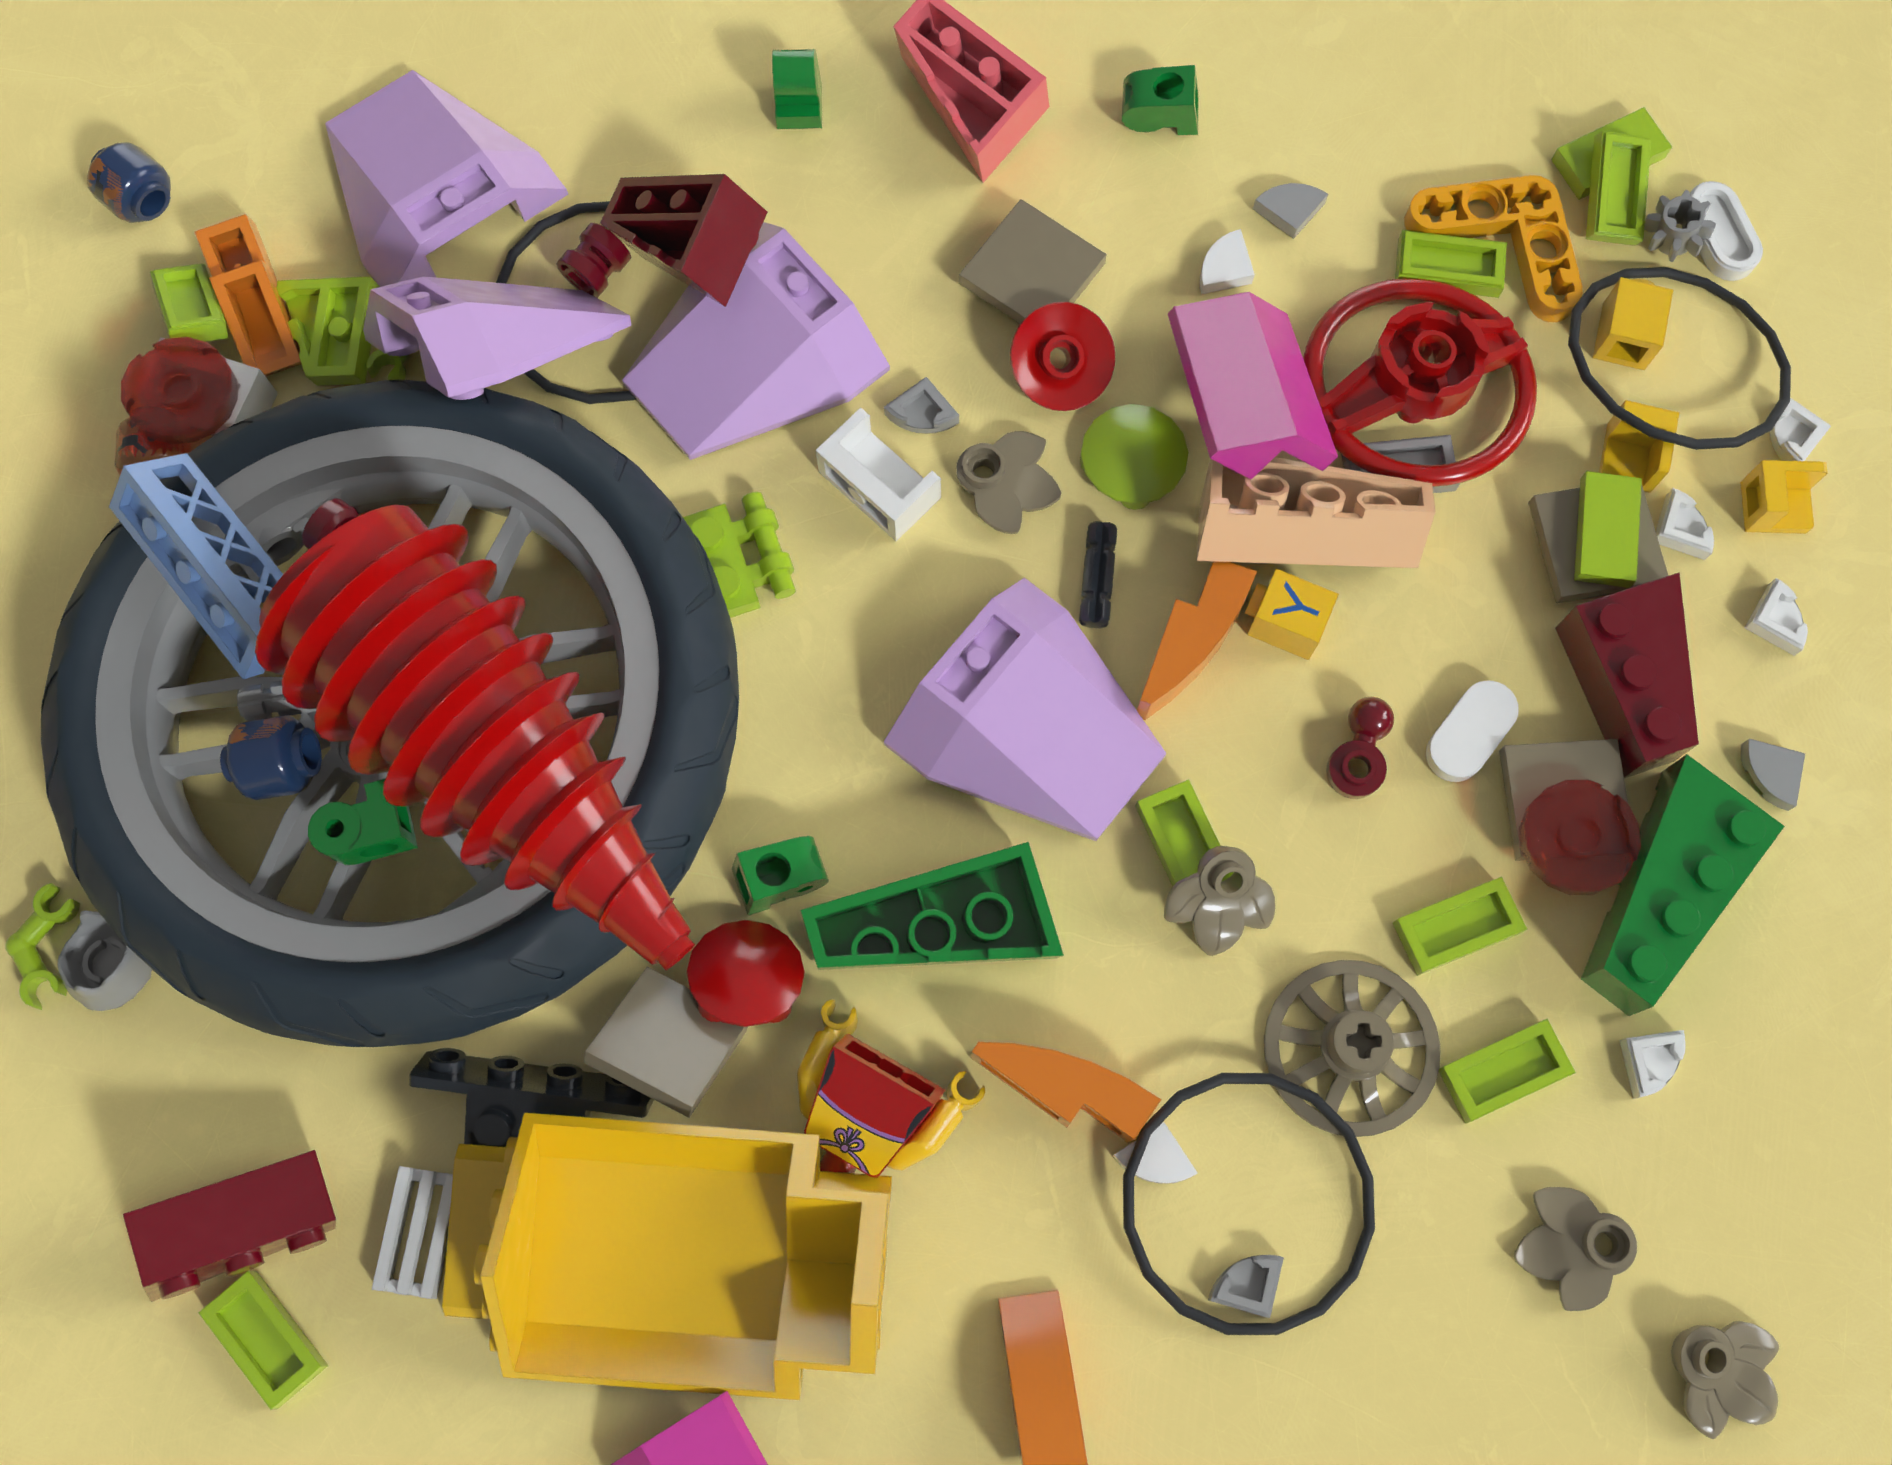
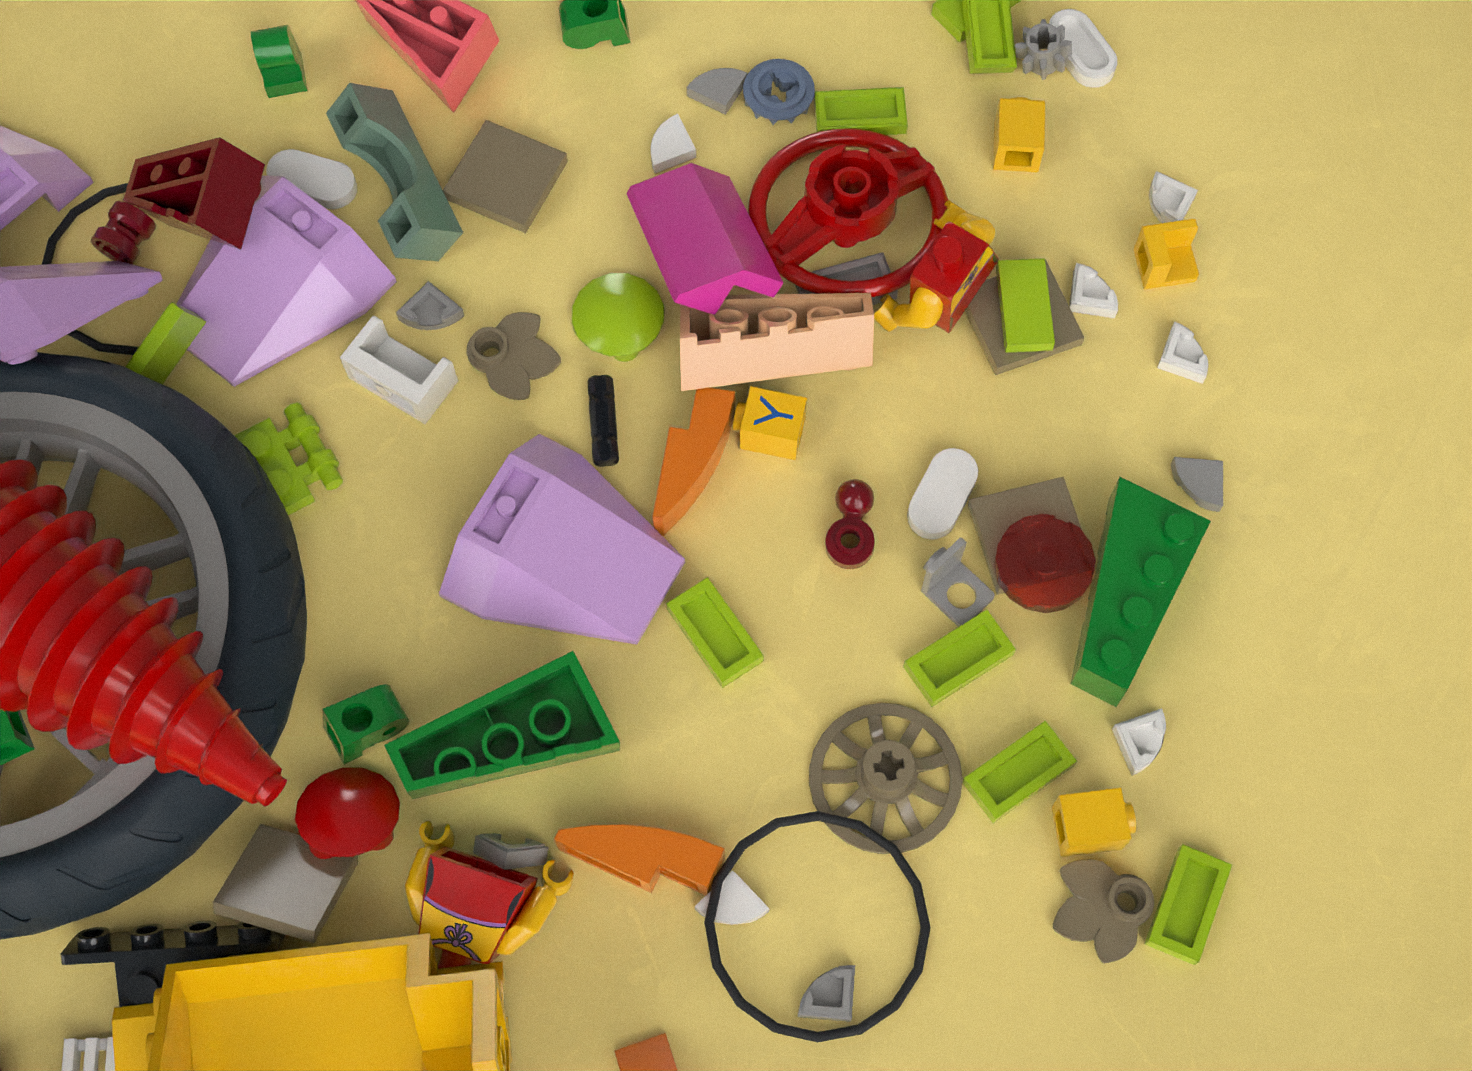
camera: 10 degrees left, 5 degrees down
(623, 398) = (166, 343): none -> lime tile
(823, 234) = (321, 178): none -> white tile
(896, 191) = (376, 129): none -> sand green arch
(916, 1056) = (508, 855): none -> light grey tile
(1087, 352) = (552, 223): red dish -> none
(1224, 907) = (754, 679): dark tan plate -> none
(1373, 207) = (788, 77): none -> sand blue gear
(1464, 822) = (945, 570): none -> light grey bracket
(1523, 224) = (915, 69): light orange beam -> none
(1526, 479) = (945, 275): none -> torso
(1583, 1147) = (1093, 822): none -> yellow brick
(1633, 452) = (1041, 230): yellow panel -> none
(1636, 671) = (1068, 417): dark red wedge -> none
(1641, 425) = (1062, 220): black piece -> none
(1674, 1261) = (1188, 904): none -> lime tile
(1731, 1379) = (1254, 994): dark tan plate -> none

